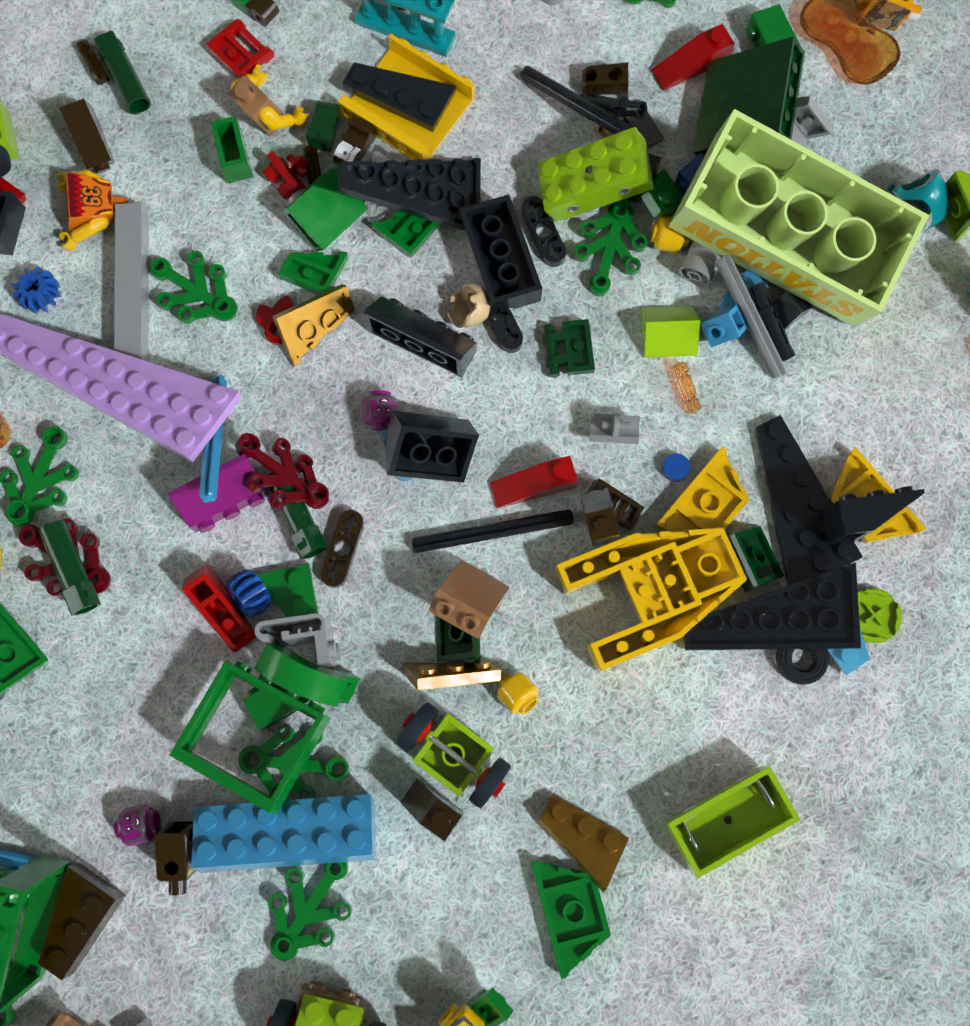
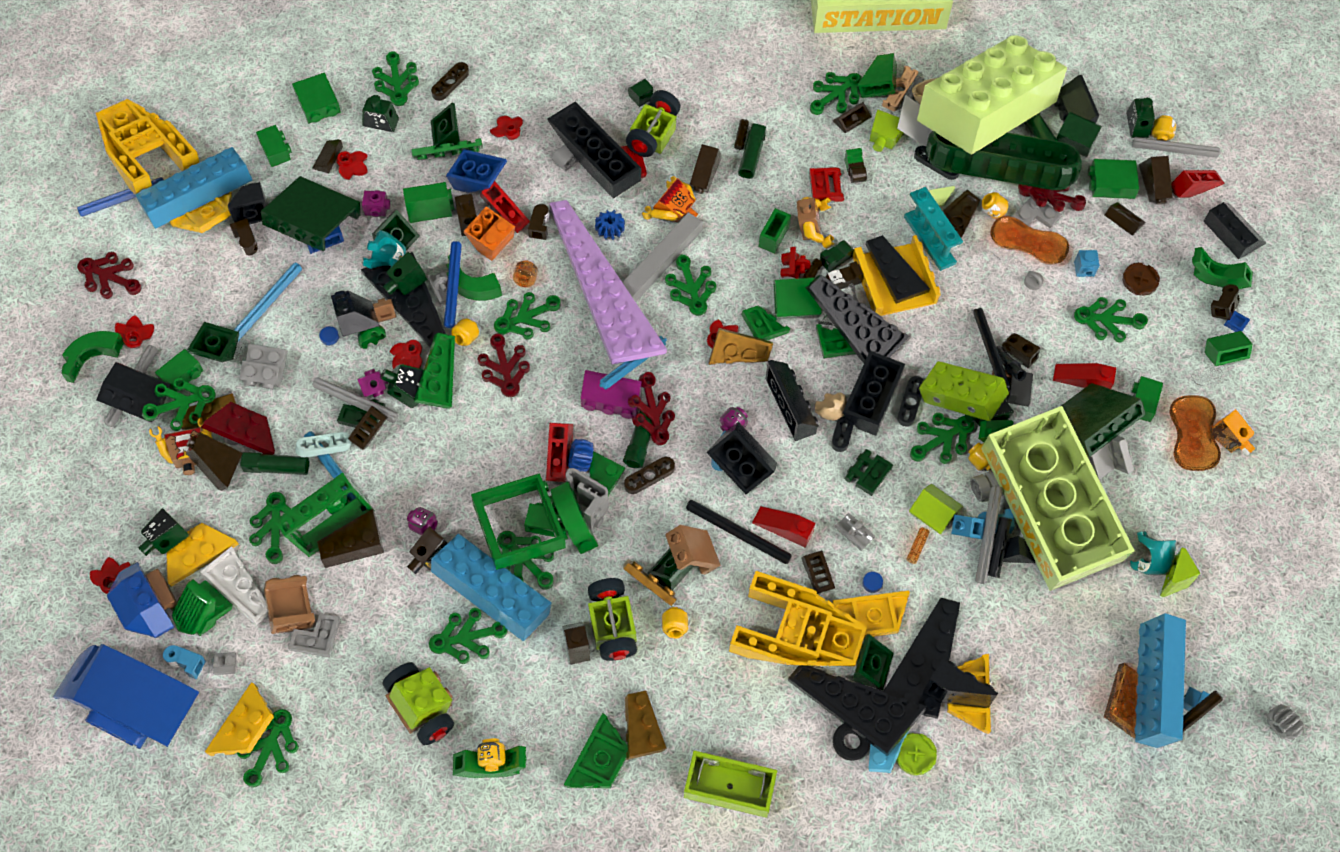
camera: 40 degrees right, 15 degrees down
(72, 576) = (498, 382): dark green piece -> none
(600, 516) = (800, 566): dark brown slope -> none

